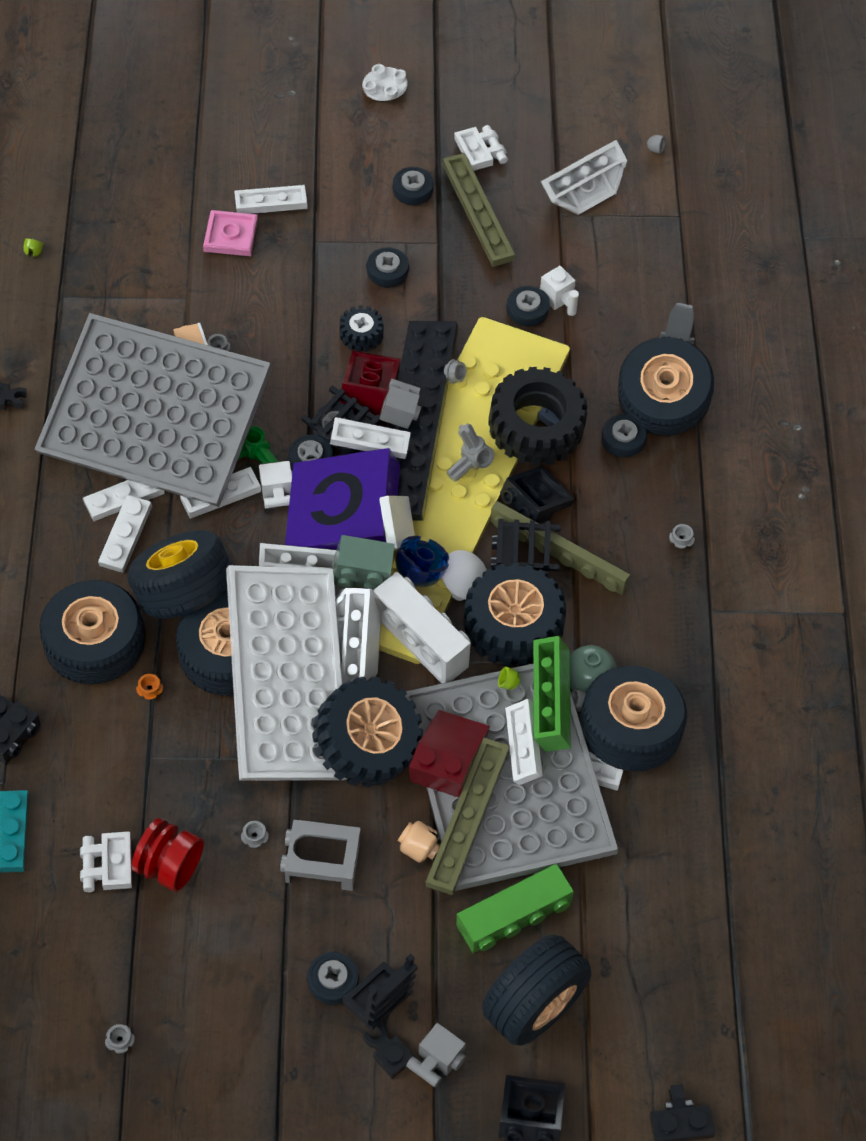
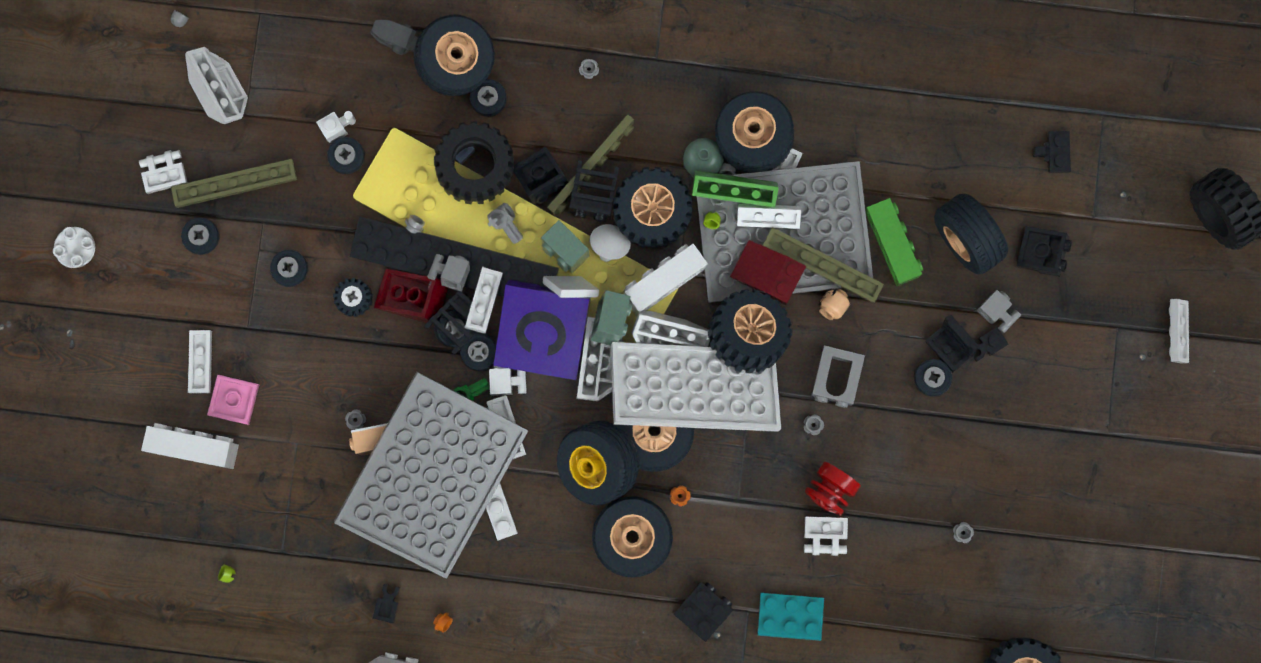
camera: 80 degrees left, 25 degrees up
(125, 534) = (537, 507): white plate -> none
(172, 194) = (190, 447): none -> white brick
(421, 561) = (605, 271): clear blue cylinder -> none
(448, 514) = (564, 247): none -> sand green brick

